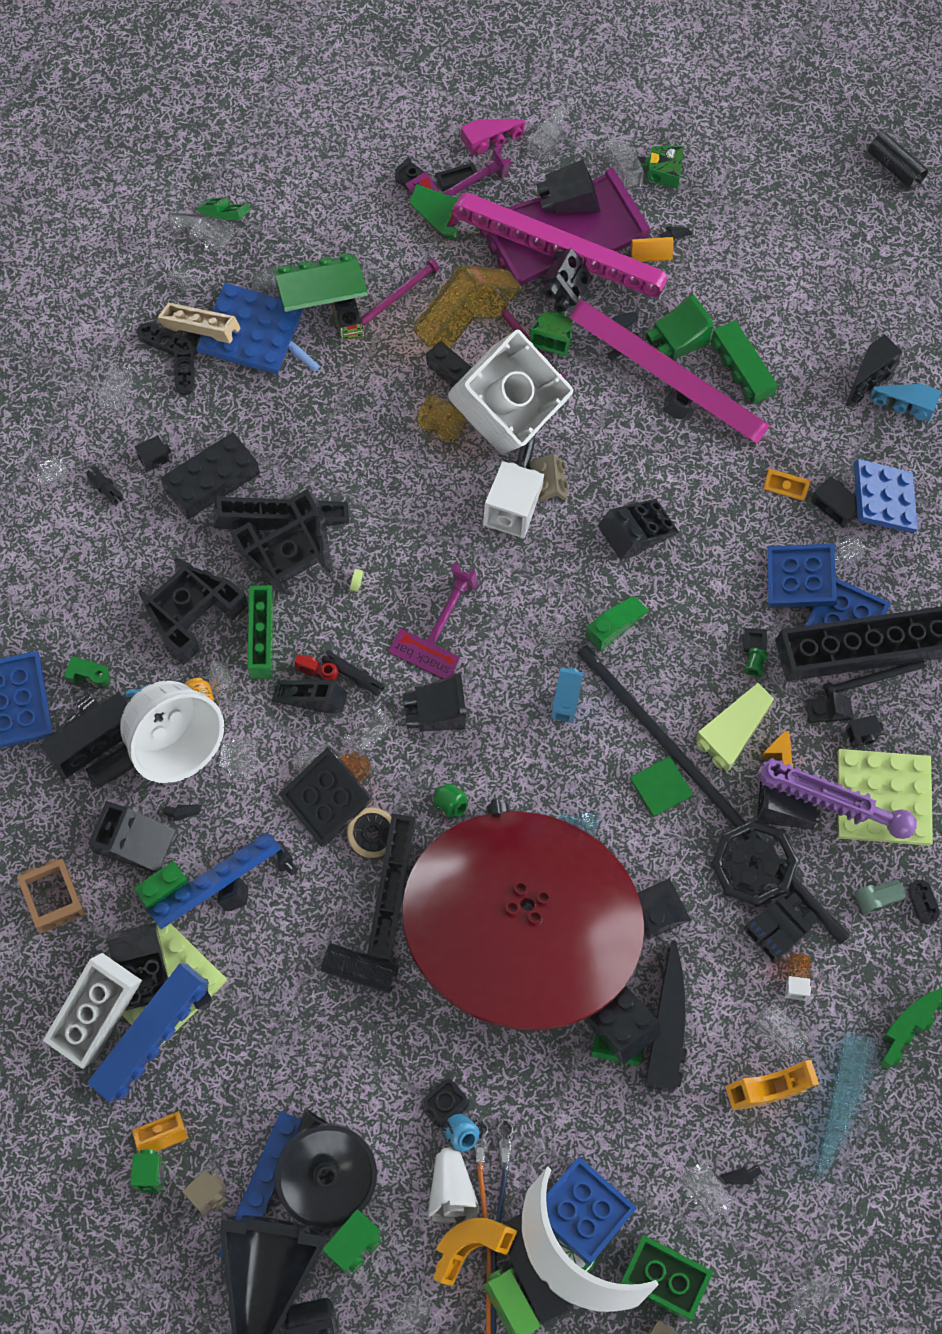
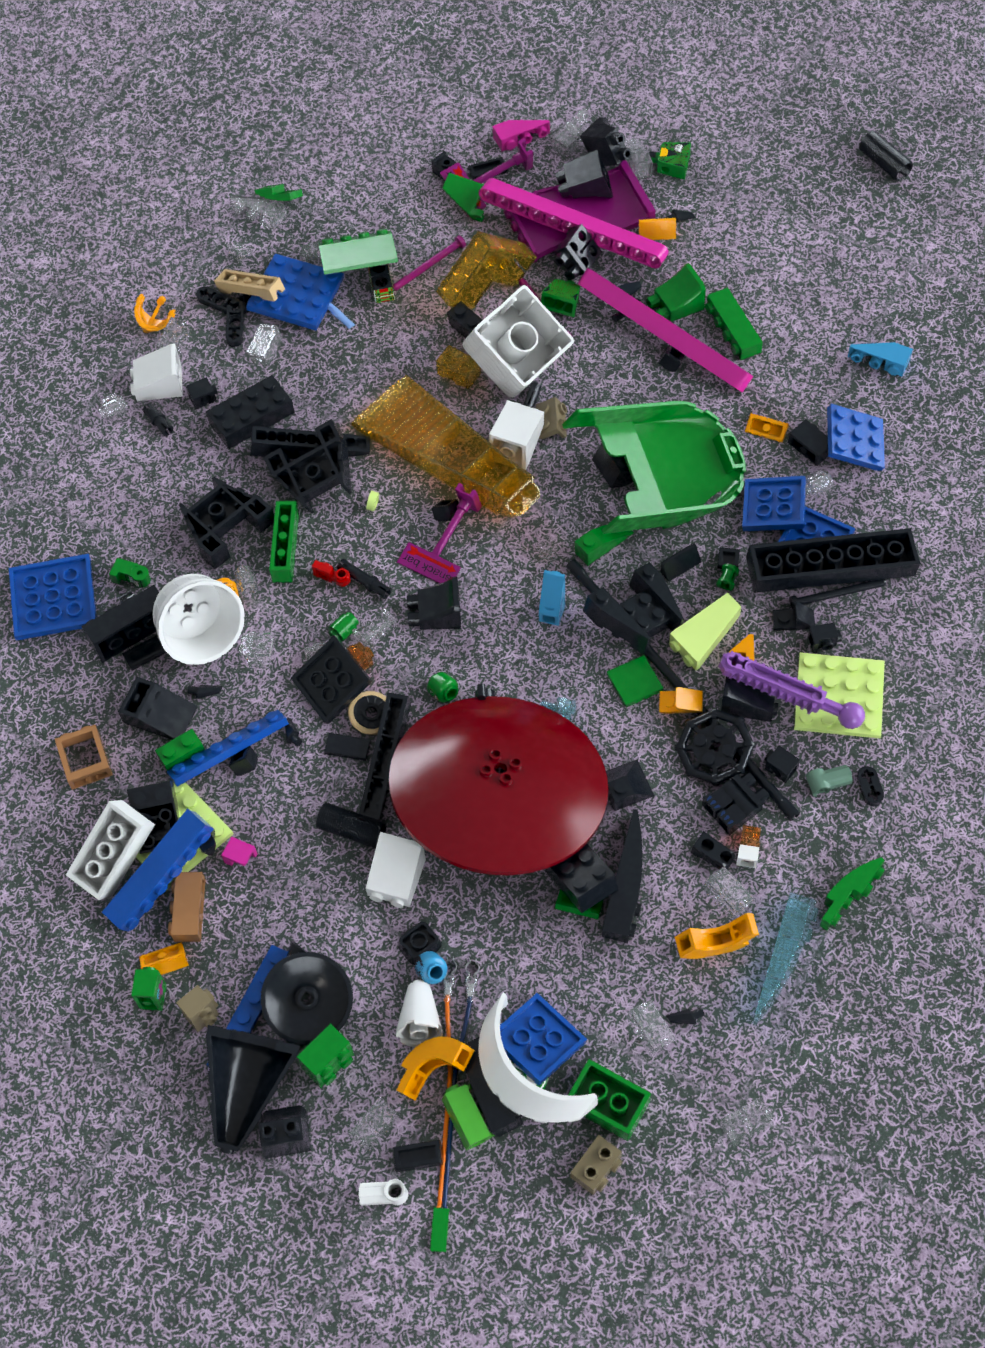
camera: 10 degrees right, 5 degrees down
(86, 368) = (149, 323): none -> light orange helmet
(100, 433) = (157, 375): none -> white slope
(182, 1071) = (187, 907): none -> medium nougat brick
(220, 393) = (264, 344): none -> clear hinge
(236, 1005) = (238, 852): none -> dark pink panel
(315, 695) = (330, 595): black slope -> none
(334, 731) = (343, 625): none -> green brick
(348, 873) = (347, 746): none -> black tile
(413, 1021) = (395, 870): none -> white slope
(430, 512) = (447, 448): none -> clear yellow brick
(438, 589) = (445, 510): none -> black slope
(591, 146) = (606, 141): none -> black hips
(664, 711) = (640, 615): none -> black wedge
(692, 527) = (674, 458): none -> green windscreen
(703, 646) = (680, 562): none -> black slope
(714, 810) = (681, 701): none -> light orange slope
(759, 985) = (713, 851): none -> black leg
(827, 879) = (781, 763): none -> black brick
(876, 367) = (853, 328): black slope -> none

